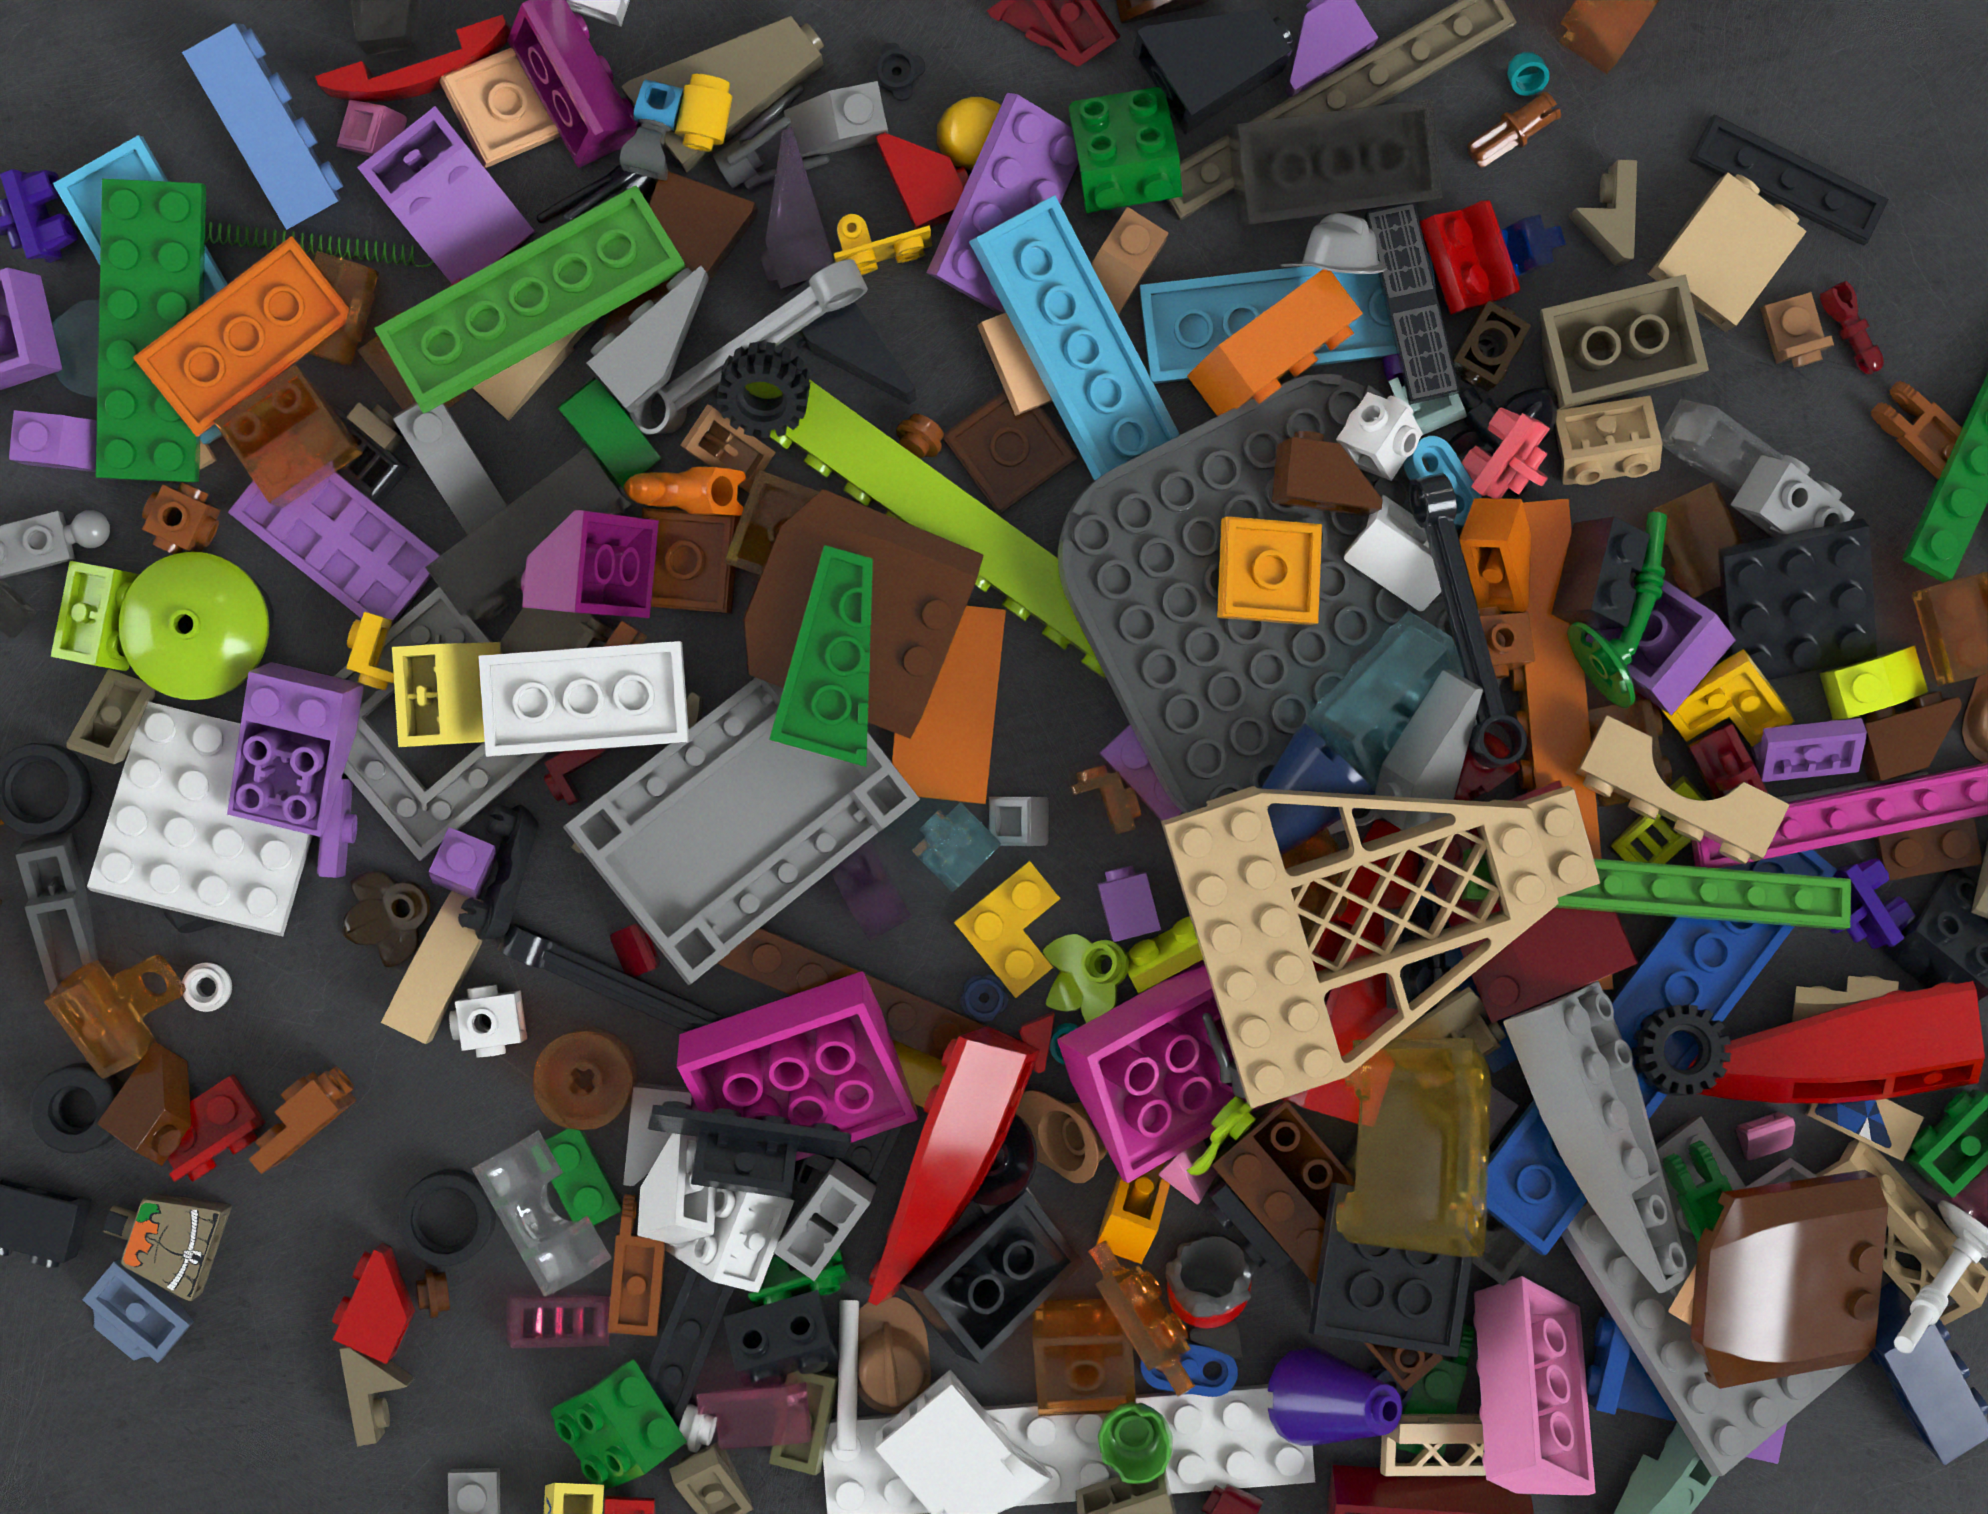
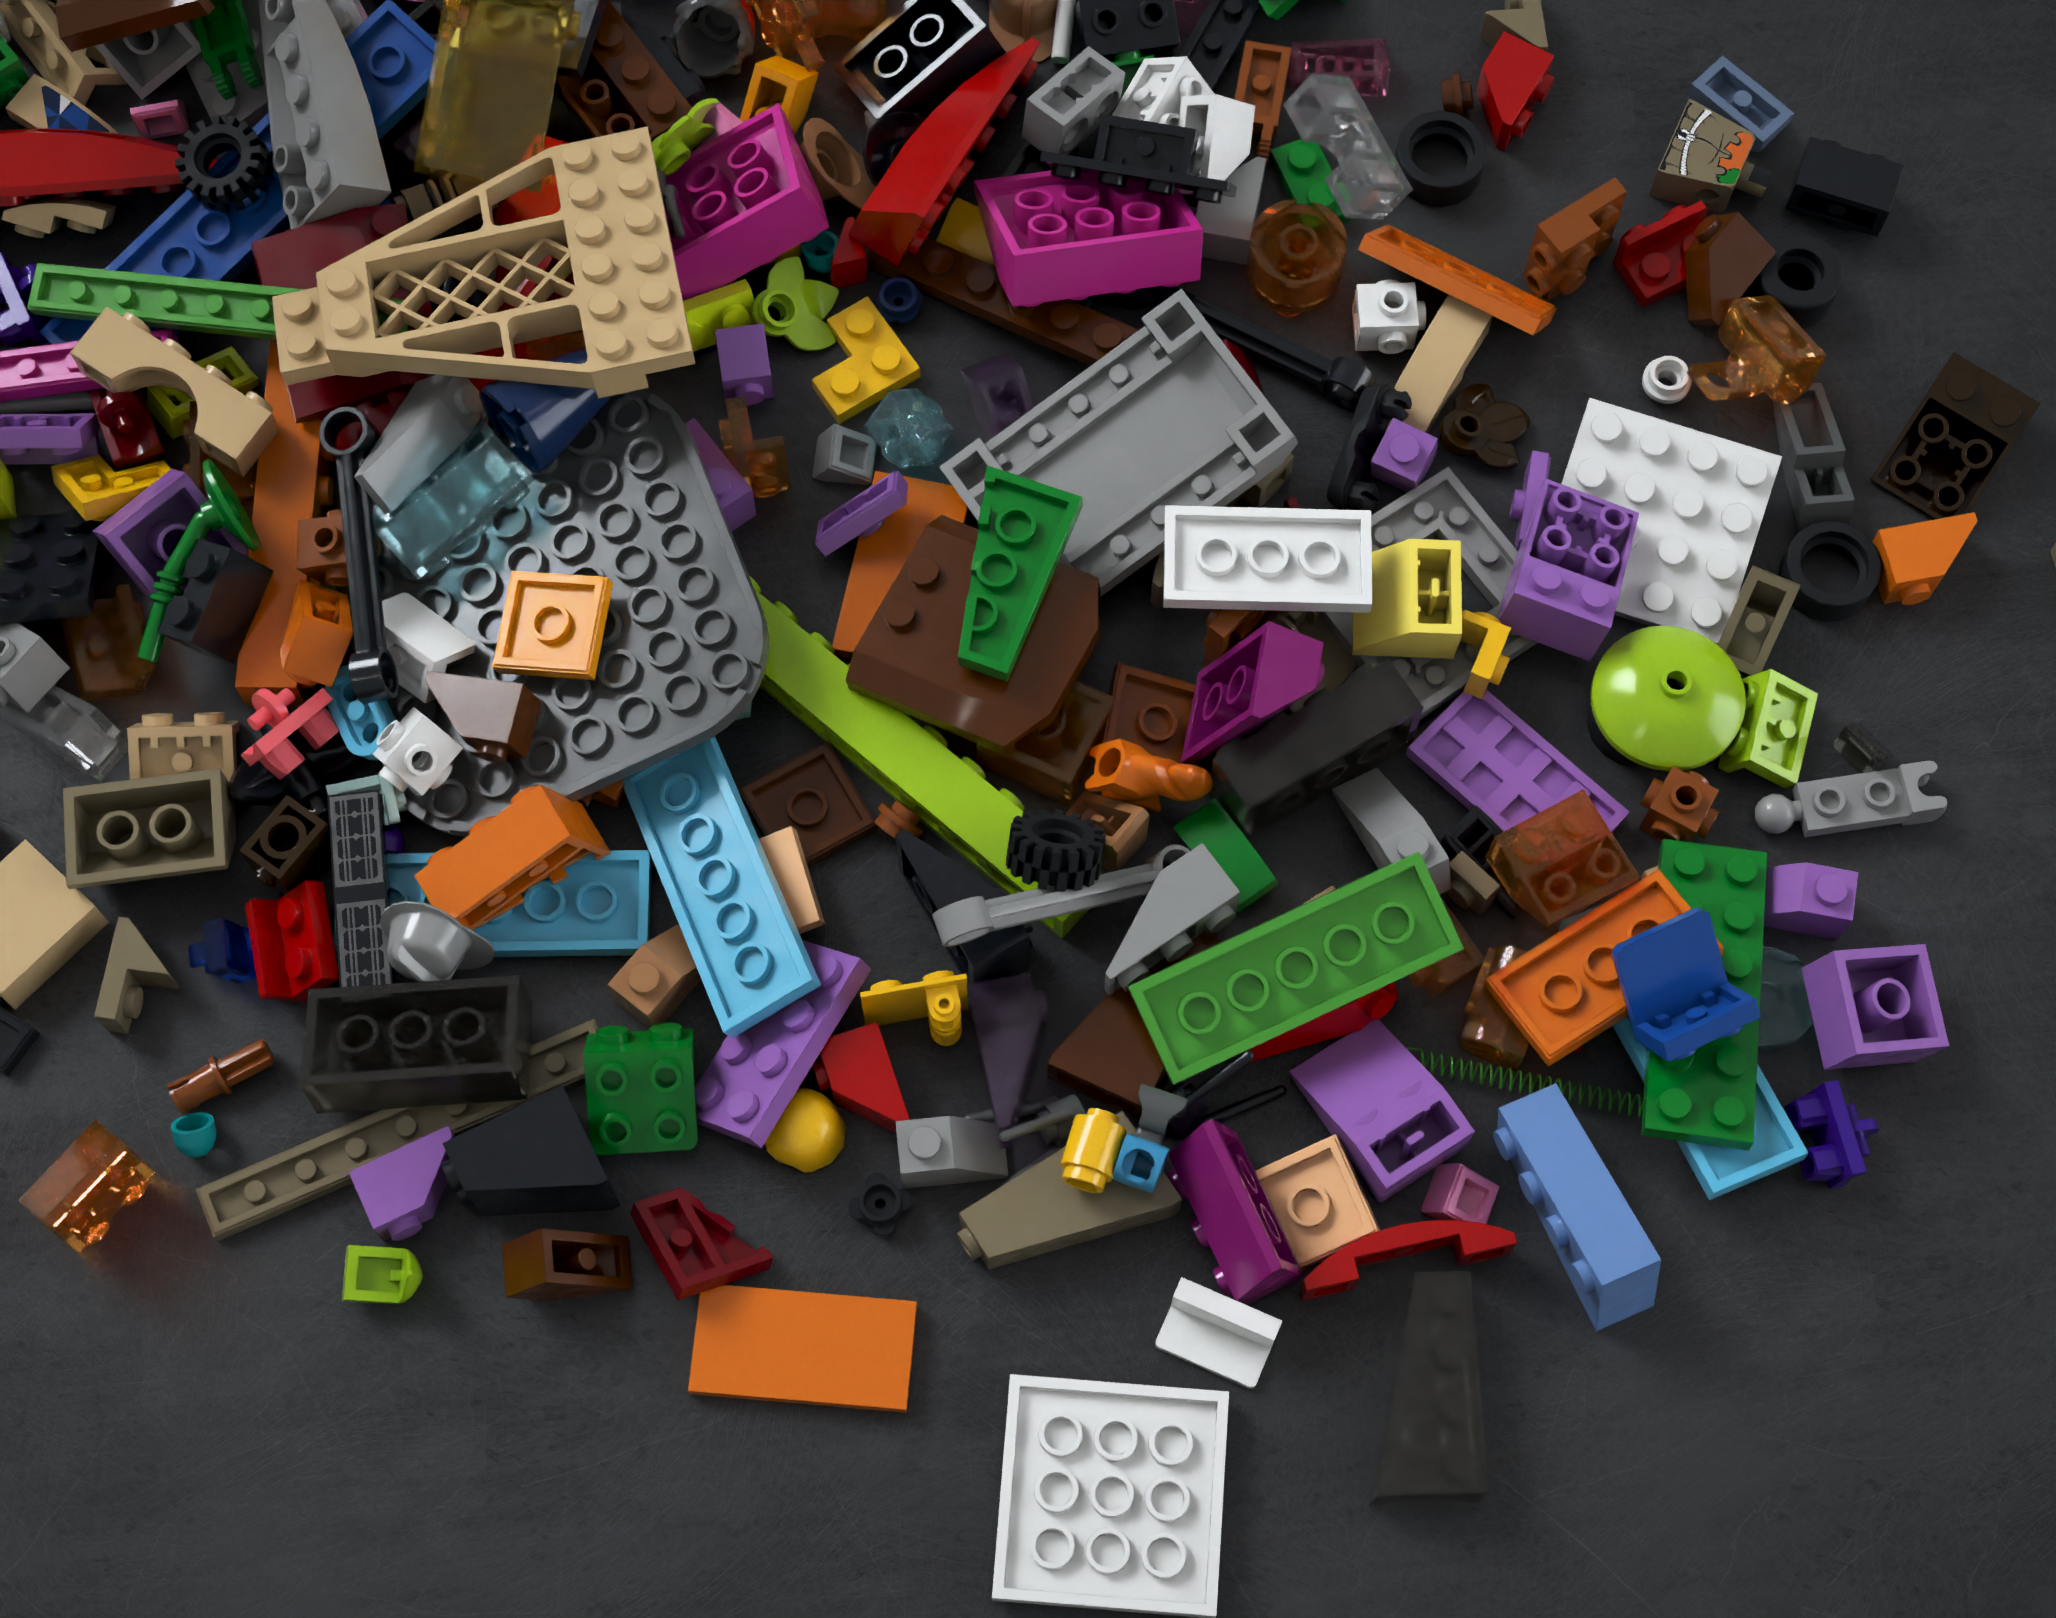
camera: 175 degrees left, 20 degrees down
(167, 299) = (1680, 987): none -> blue bracket
(419, 1066) = (1458, 278): none -> orange tile
(991, 744) = (862, 513): none -> medium lavender plate

